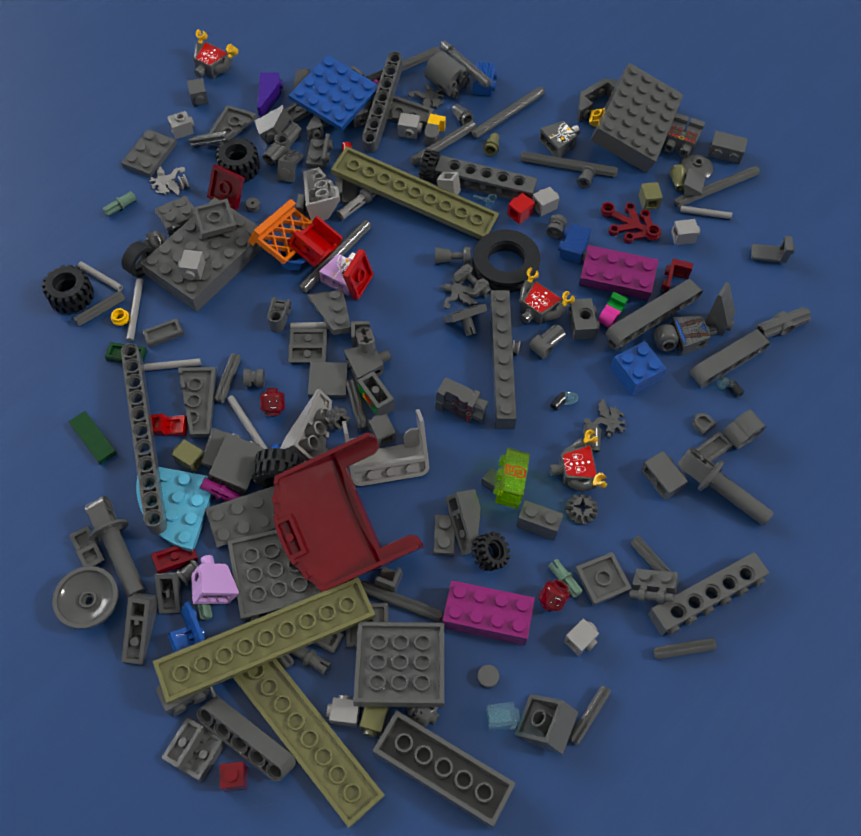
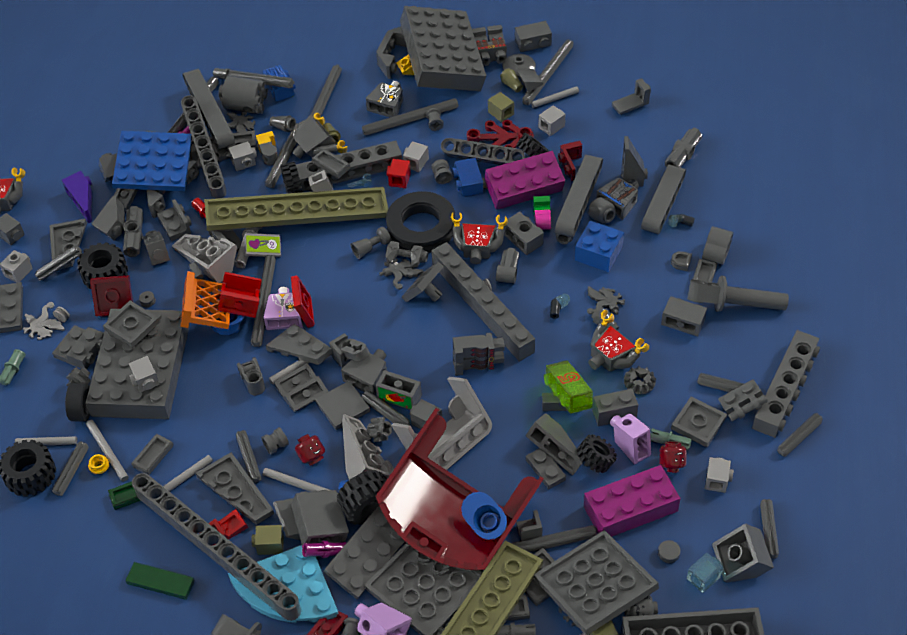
camera: 30 degrees left, 10 degrees down
(352, 546) = (484, 515): none -> blue piece
(366, 209) = (261, 245): none -> slope
(410, 72) = (209, 109): none -> dark grey beam
(468, 169) = (331, 163): none -> dark grey tile
(474, 141) = (314, 137): none -> dark grey torso
(532, 555) = (632, 437): none -> lavender torso
(598, 222) = (476, 148): none -> dark grey beam
(647, 245) = (531, 145): none -> black tyre

